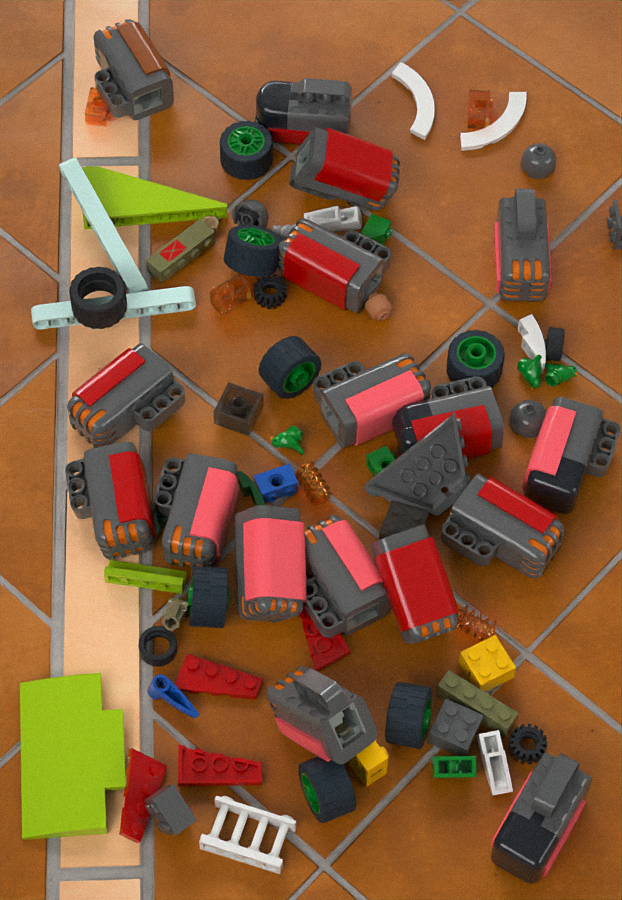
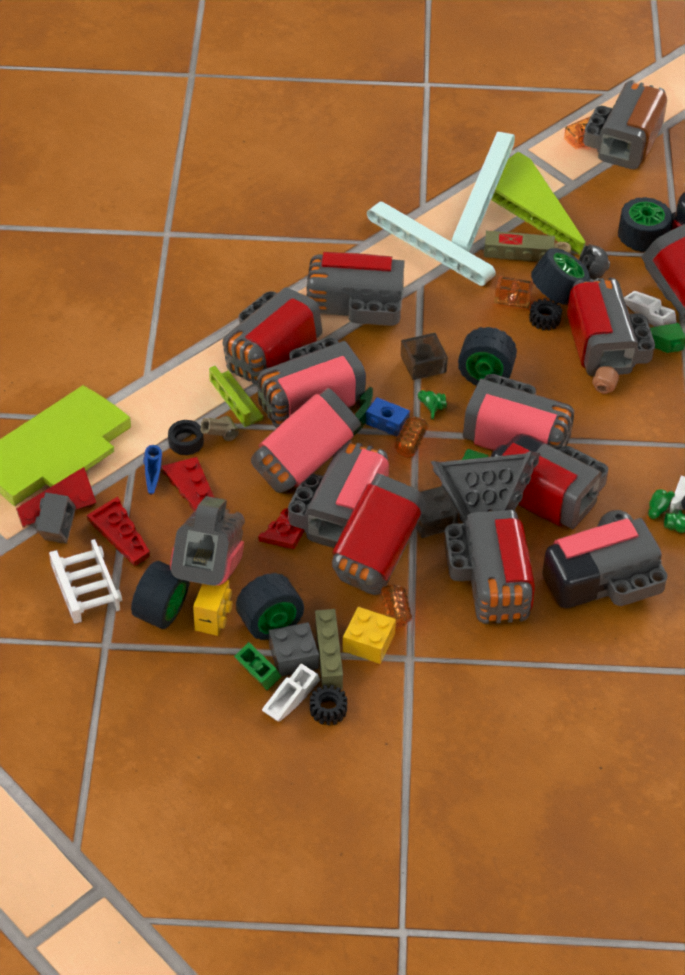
camera: 50 degrees right, 10 degrees down
(94, 280) = (419, 208): black tyre -> none
(208, 597) = (244, 430): black wheel -> none
(475, 355) = (628, 460): black wheel -> none
(541, 818) = (263, 745): piece -> none

